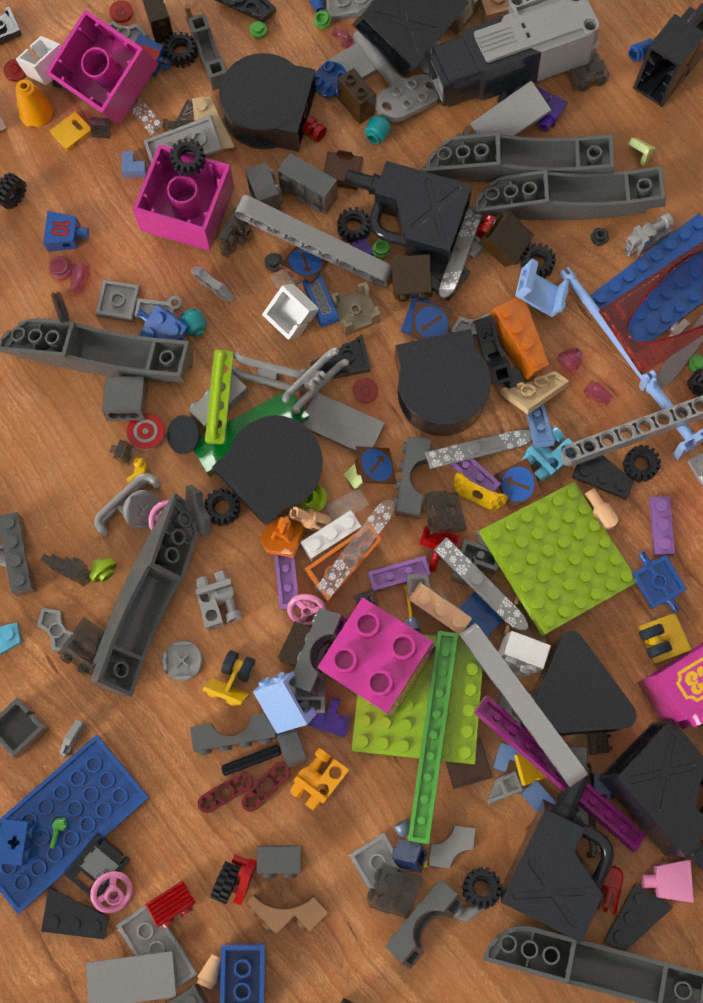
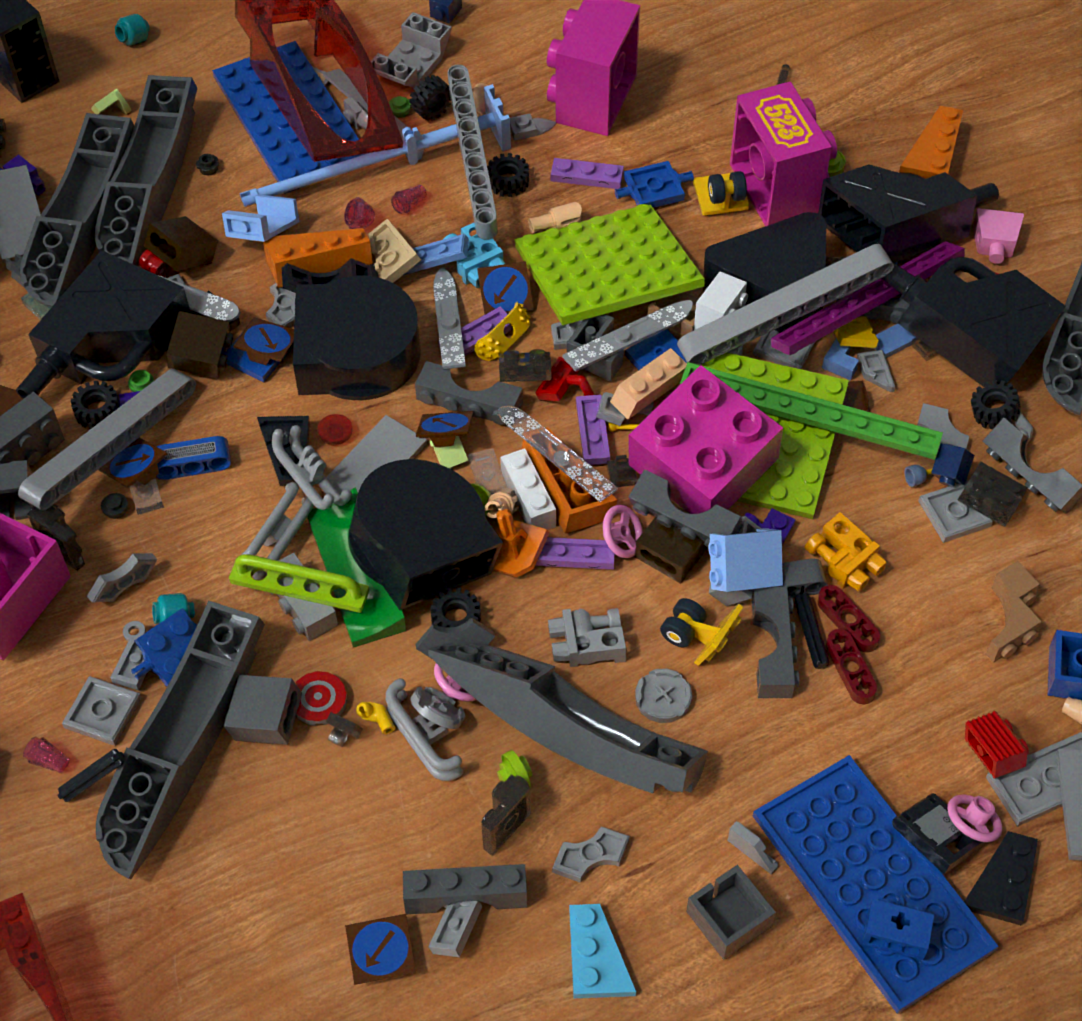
camera: 80 degrees left, 20 degrees down
(58, 825) = (878, 872): bright green hand -> none
(60, 268) = (20, 781): clear pink cone -> none
(82, 646) = (625, 809): clear smoke plate -> none
(183, 434) = (338, 645): black piece -> none
(225, 882) = (972, 671): black tyre -> none
(245, 875) = (971, 644): red plate -> none
(279, 860) = (948, 603): dark grey piece -> none
(290, 311) = (198, 484): white piece -> none
(356, 310) = (220, 418): dark tan panel -> none
(542, 252) = (214, 216): black tyre -> none
(603, 475) = (514, 213): black wing -> none
(636, 917) = (1037, 269): black wing -> none
(649, 235) = (227, 112): light grey hips -> none

